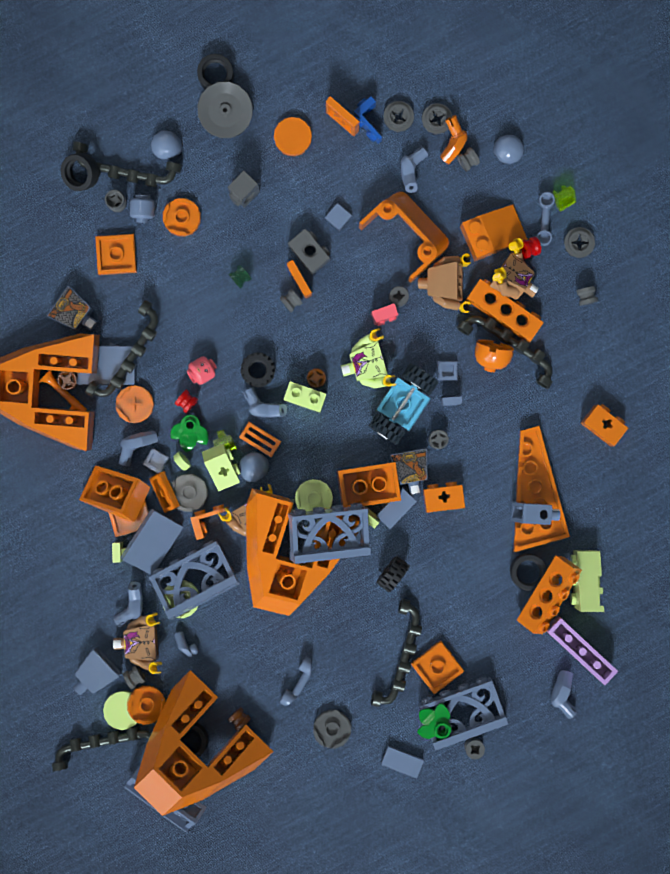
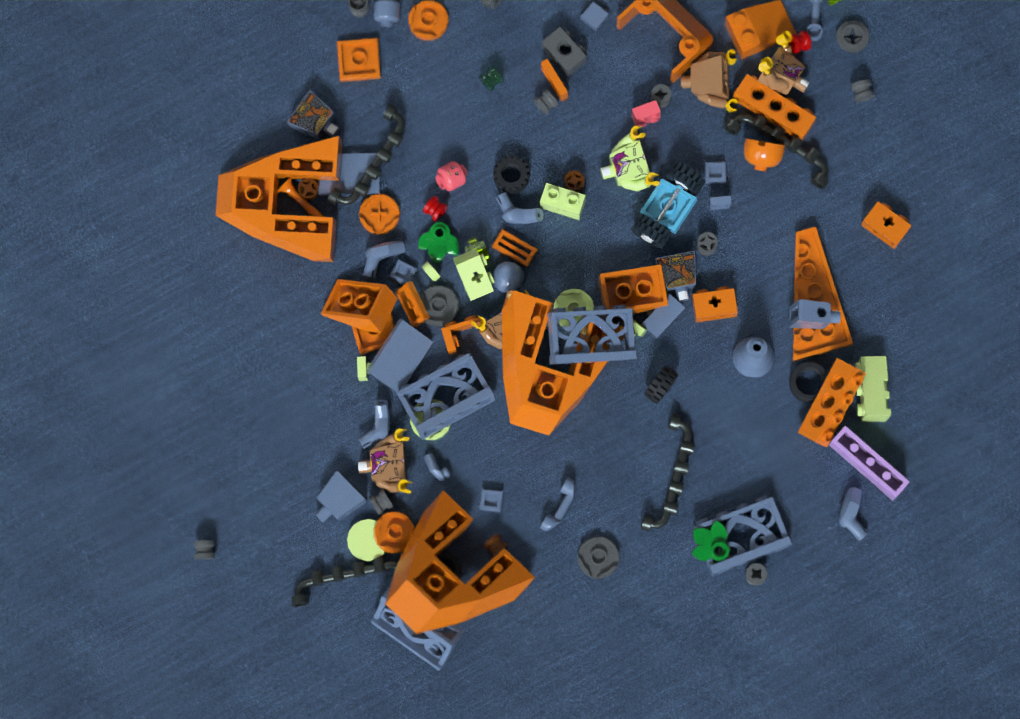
camera: 10 degrees right, 10 degrees down
(235, 675) = (491, 500): none -> sand blue tile
(402, 761) = (676, 592): sand blue tile -> none
(437, 667) = (712, 488): orange tile -> none
(471, 542) = (753, 357): none -> sand blue cone

